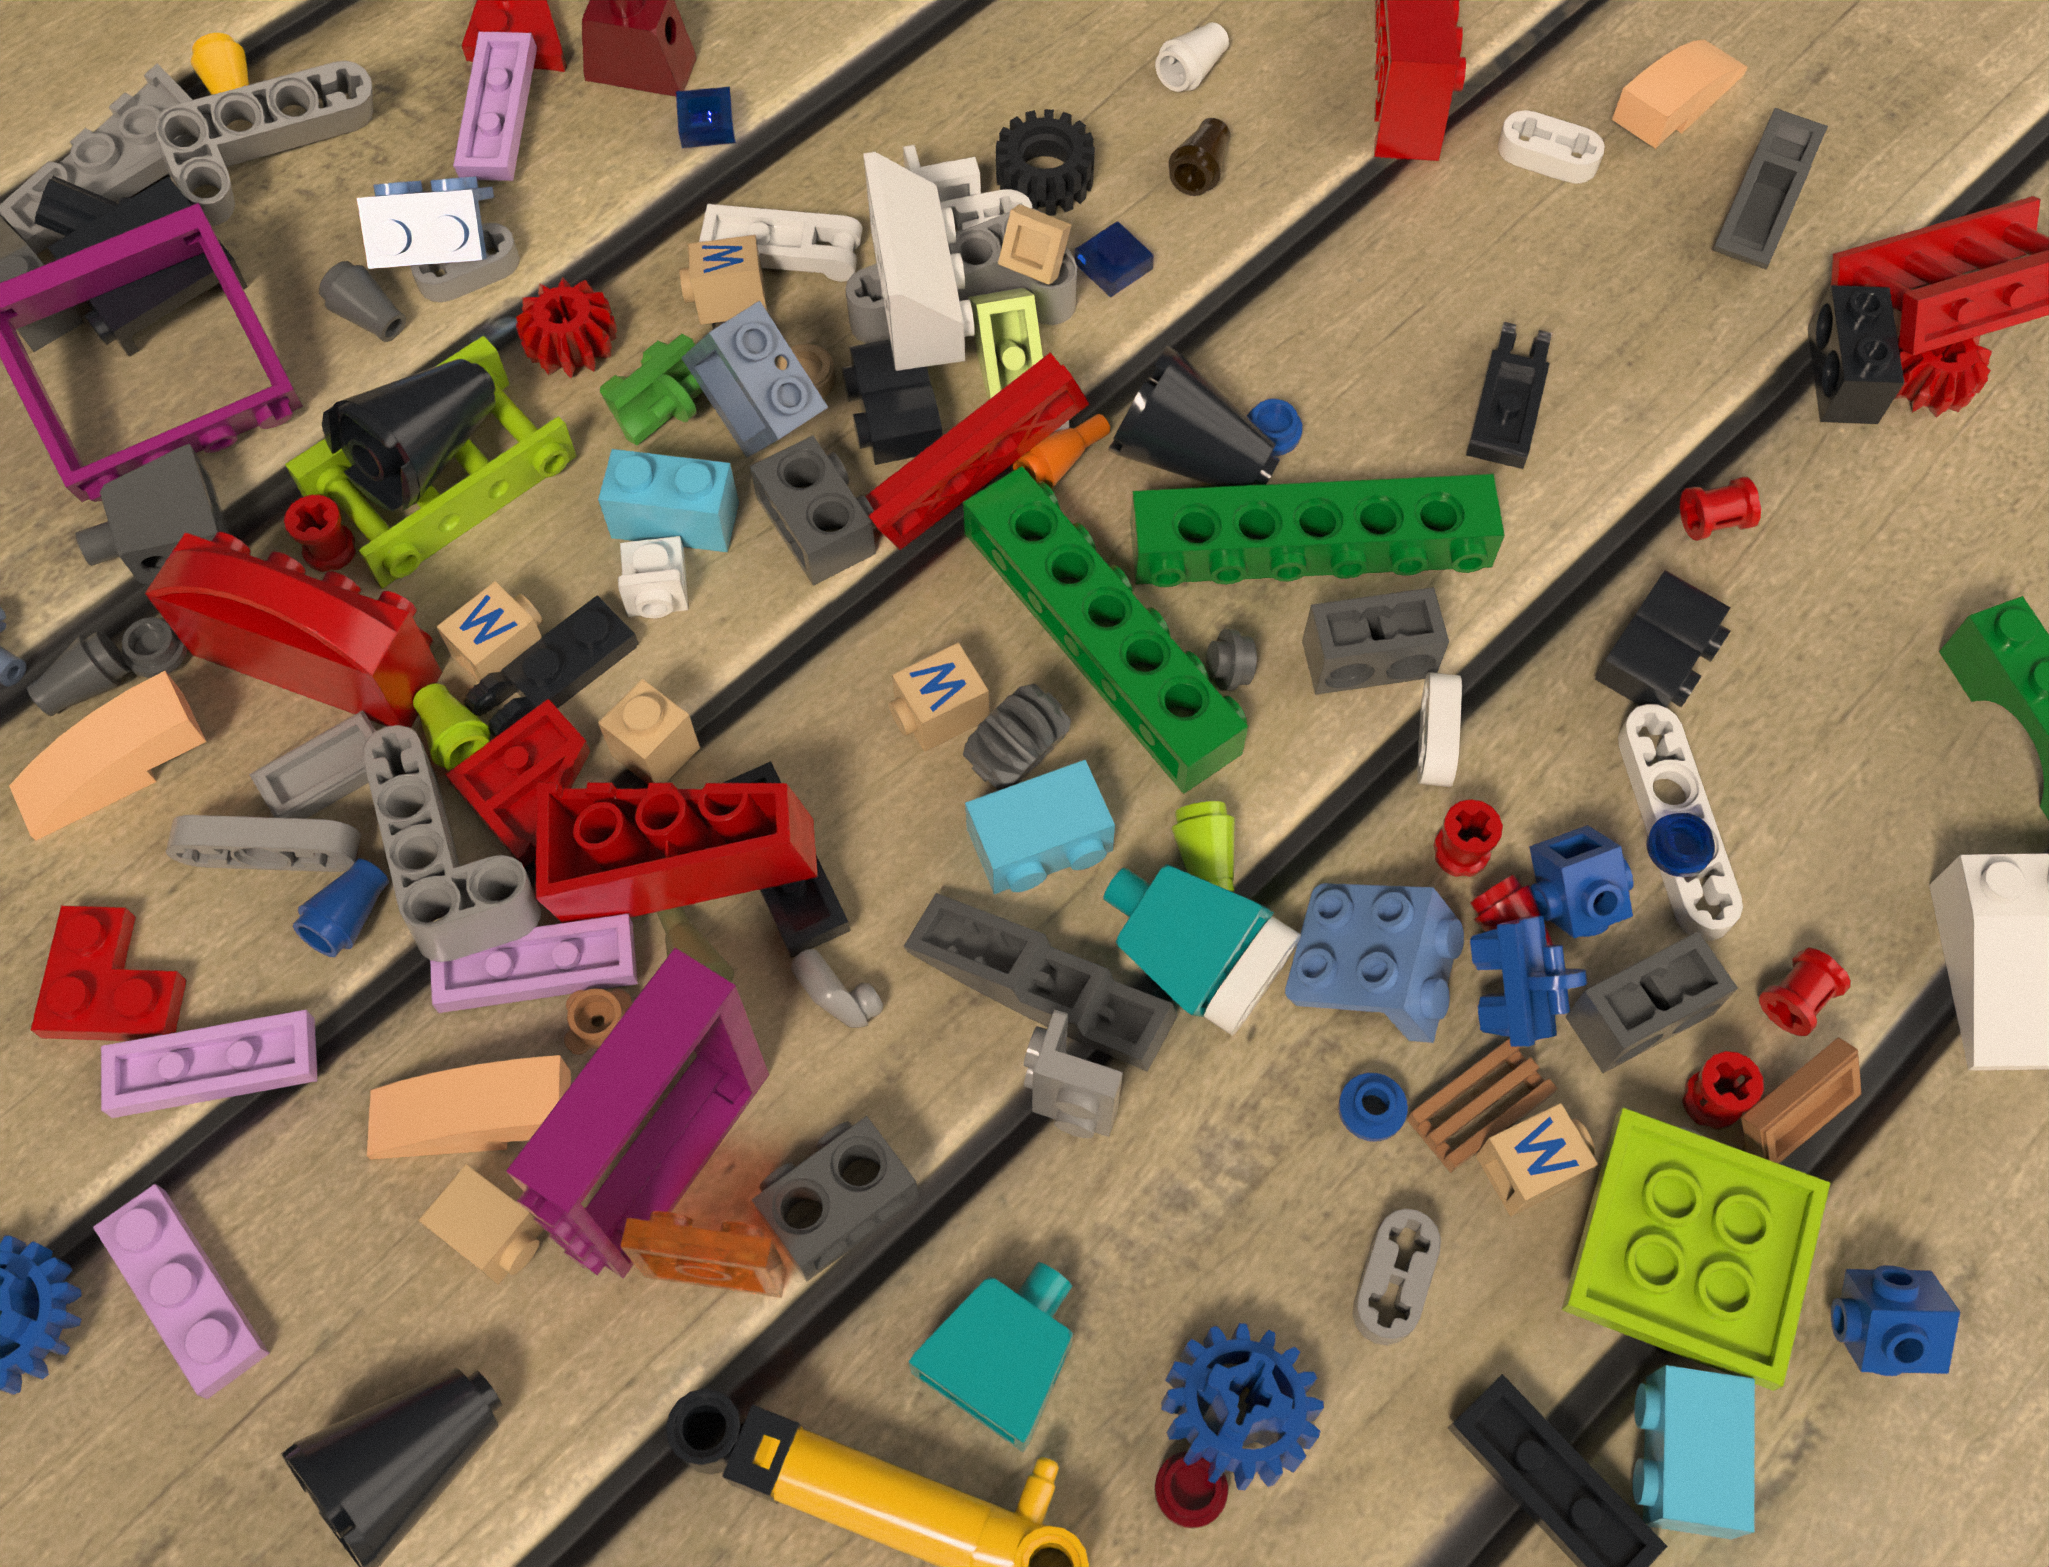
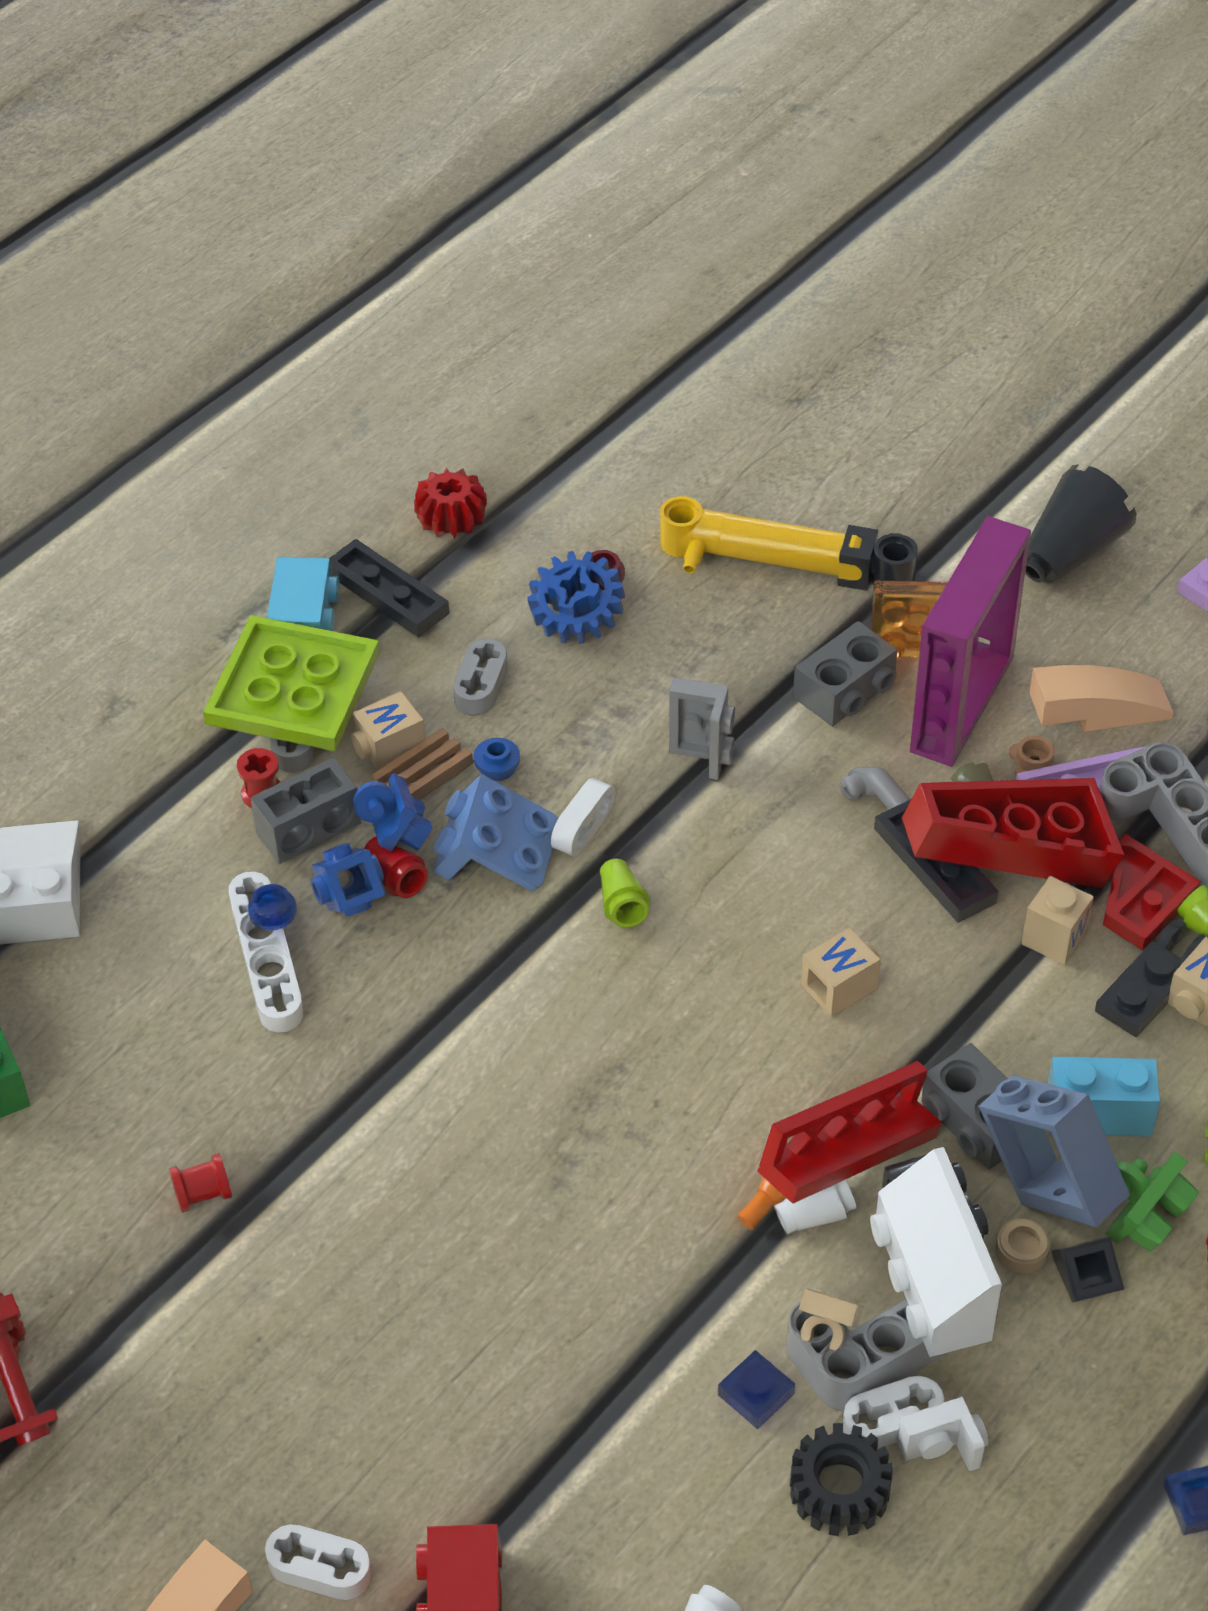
camera: 175 degrees right, 15 degrees down
(483, 1225) = (1065, 638): tan brick -> none
(653, 577) = (1094, 1033): white bracket -> none
(723, 278) = (1119, 1303): tan brick -> none
(790, 238) = (1083, 1366): white plate -> none
(1001, 1353) = (728, 610): teal torso -> none
(1005, 336) = (842, 1263): yellowish green slope -> none
(1016, 736) = (775, 932): dark grey gear -> none
(1035, 979) = (739, 809): dark grey slope -> none
(1040, 828) = (748, 891): medium azure brick -> none
(1182, 746) = (663, 979): green brick -> none
(1184, 931) = (632, 824): teal torso -> none
(1193, 429) = (668, 1191): black cone -> none
(1199, 159) = (682, 1500): dark brown cone -> none
(1231, 660) = (614, 1022): dark grey plate -> none
(1279, 422) = (591, 1226): blue plate -> none
(1340, 511) = (575, 1141): green brick -> none
(1374, 640) = (501, 1028): dark grey brick -> none
(1439, 729) = (447, 987): white beam -> none
(1466, 819) = (428, 906): red bush -> none
(1510, 400) = (376, 1273): black hinge -> none
(1663, 644) = (263, 1064): black brick -> none
(1770, 188) = (98, 1520): dark grey slope -> none
(1803, 1103) = (203, 775): medium nougat tile -> none
(1804, 991) = (192, 842): red bush -> none
(1855, 354) = (54, 1330): black brick -> none
(1895, 1321) = (155, 670): blue brick -> none

